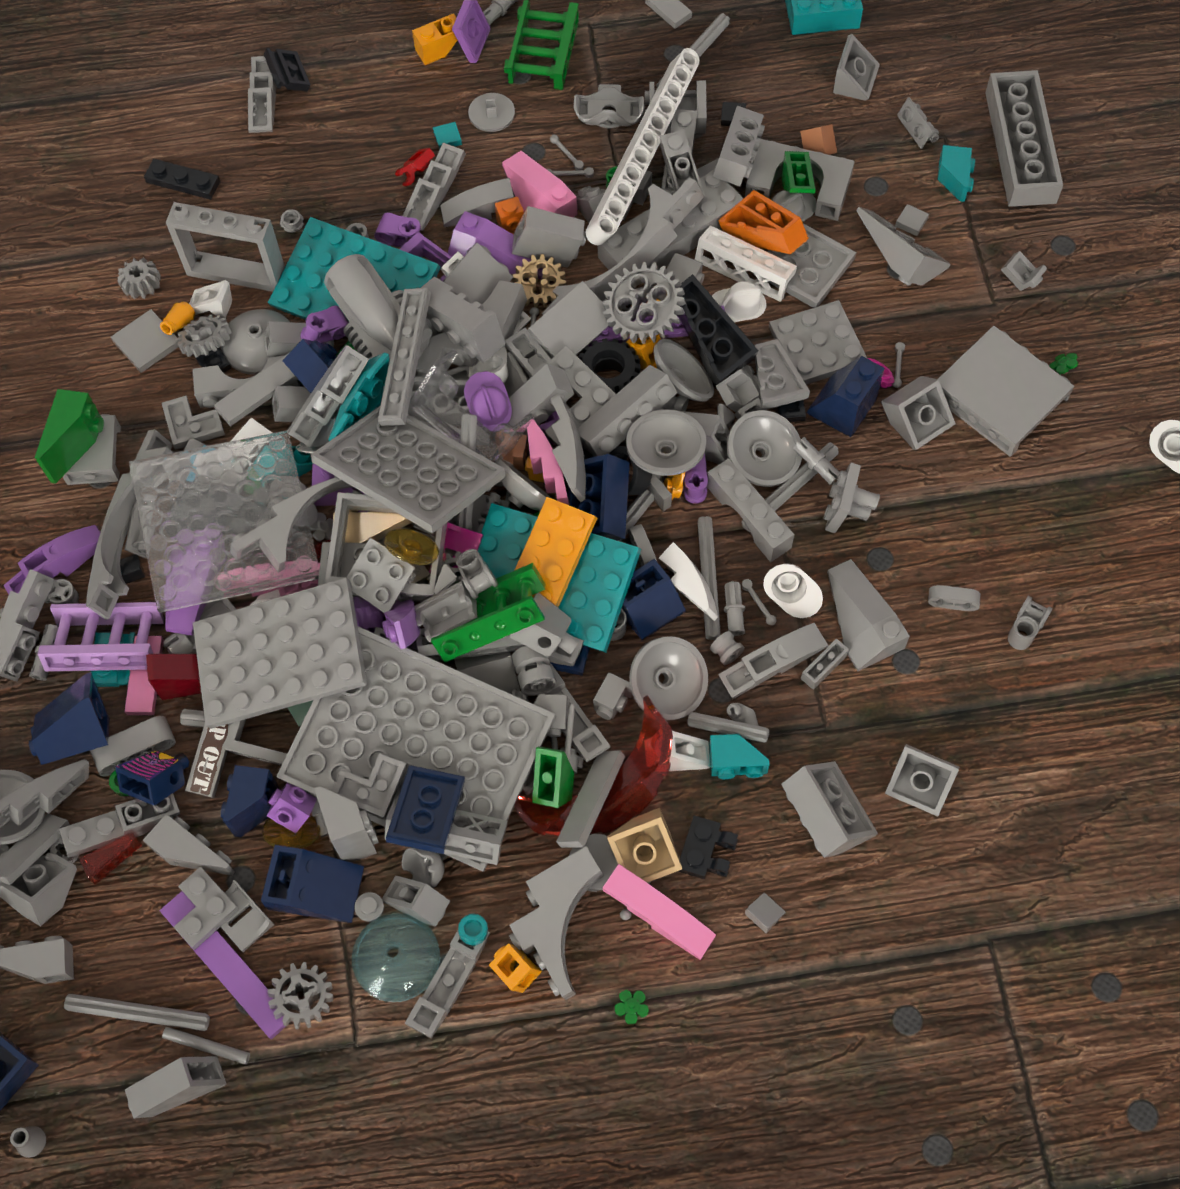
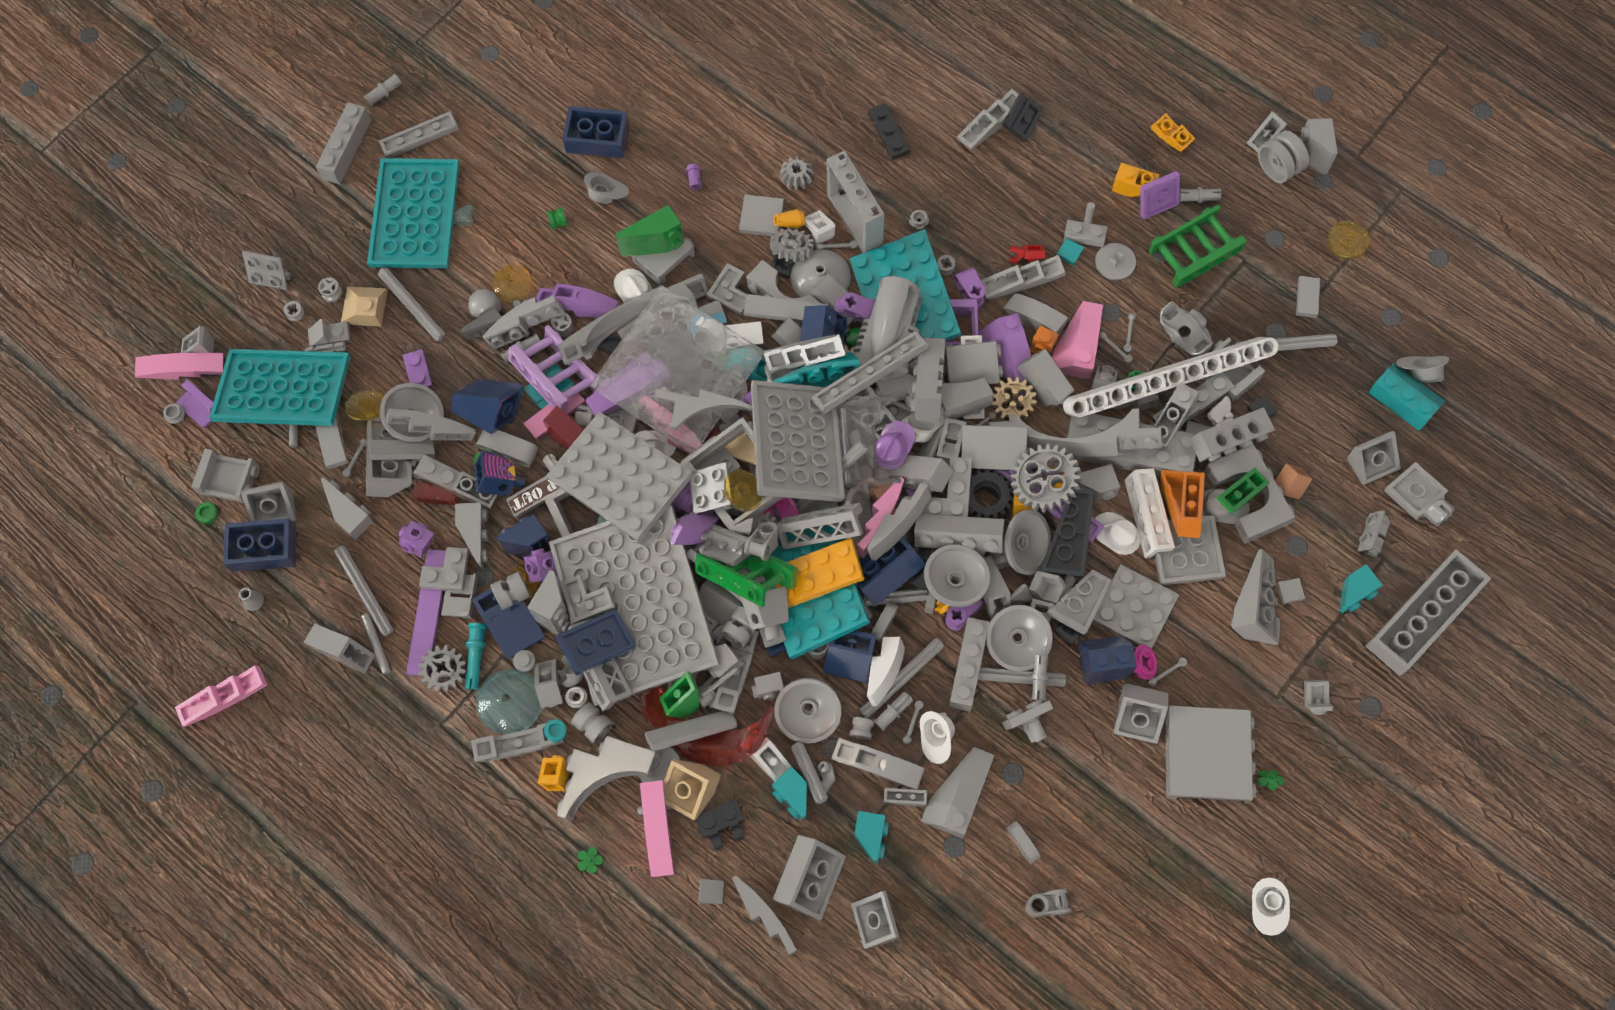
camera: 50 degrees right, 5 degrees up
(39, 361) = (693, 172): none -> medium lavender pin
(89, 504) = (631, 284): none -> white piece
(137, 911) = (415, 538): none -> medium lavender brick
(256, 292) = (853, 245): none -> light grey hinge
(292, 849) = (510, 590): none -> light grey wheel
(308, 942) = (475, 646): none -> teal pin
(442, 110) = (1084, 231): none -> light grey plate
(449, 878) = (573, 691): none -> white plate
(496, 888) = (593, 724): none -> light grey wheel
(504, 506) = (820, 518): none -> light grey fence
(708, 143) = (1221, 412): none -> white animal
(820, 878) = (759, 909): none -> light grey slope
(834, 720) = (869, 834): none -> teal slope
(918, 66) = (1420, 495): none -> light grey plate

